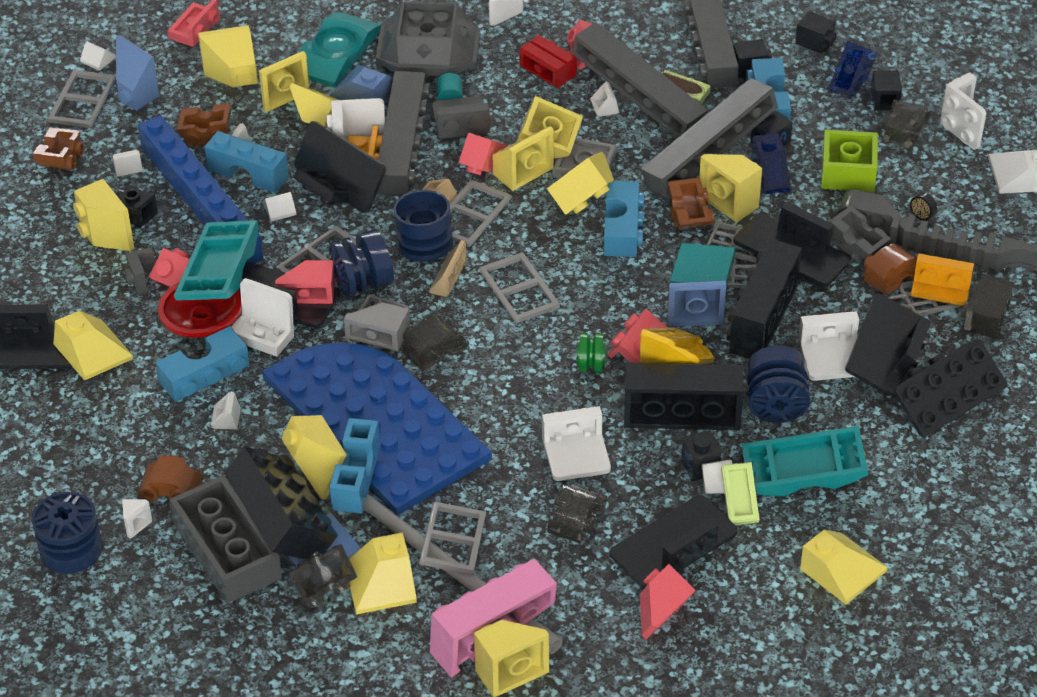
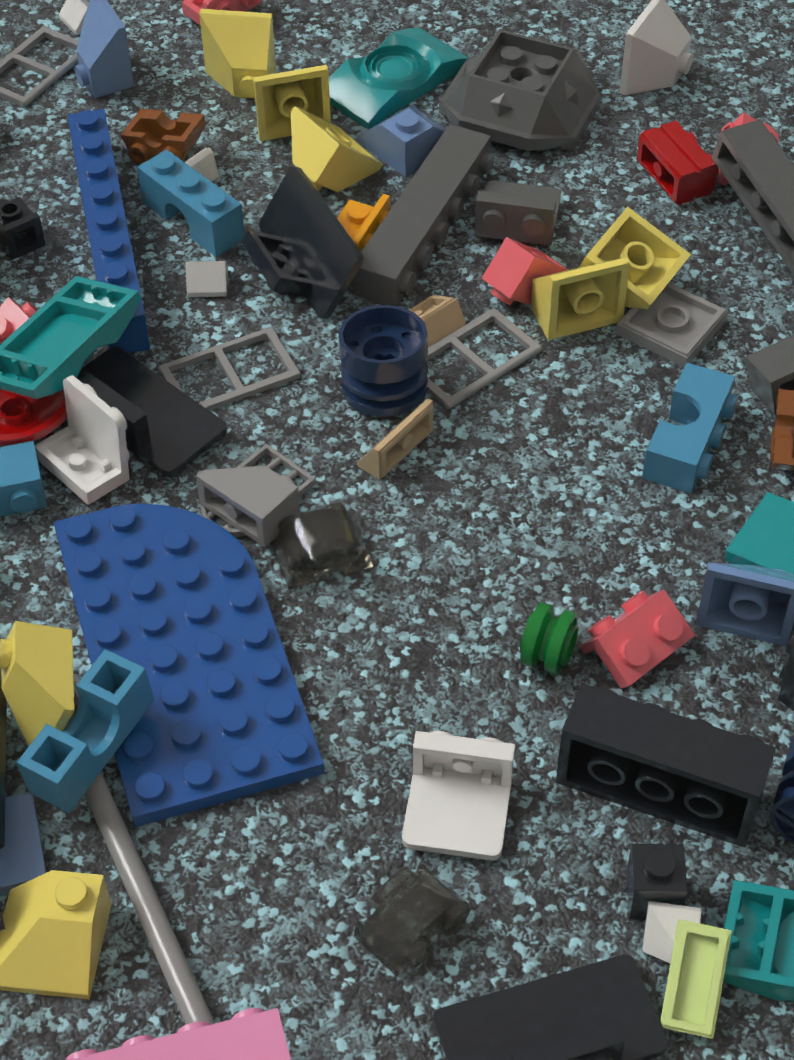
camera: 20 degrees right, 5 degrees up
(127, 163) = (39, 165): white slope -> none
(311, 280) = (181, 404): coral slope -> none
(356, 117) = (357, 176): white bracket -> none
(361, 262) = (264, 394): dark blue wheel -> none
(431, 533) = (191, 902): light grey window -> none
(449, 86) = (522, 165): teal brick -> none
(537, 280) = (522, 491): light grey window -> none
(582, 183) = (646, 356): light yellow slope -> none
(604, 101) = (737, 240): white slope -> none
(673, 347) = (681, 674): yellow wedge -> none

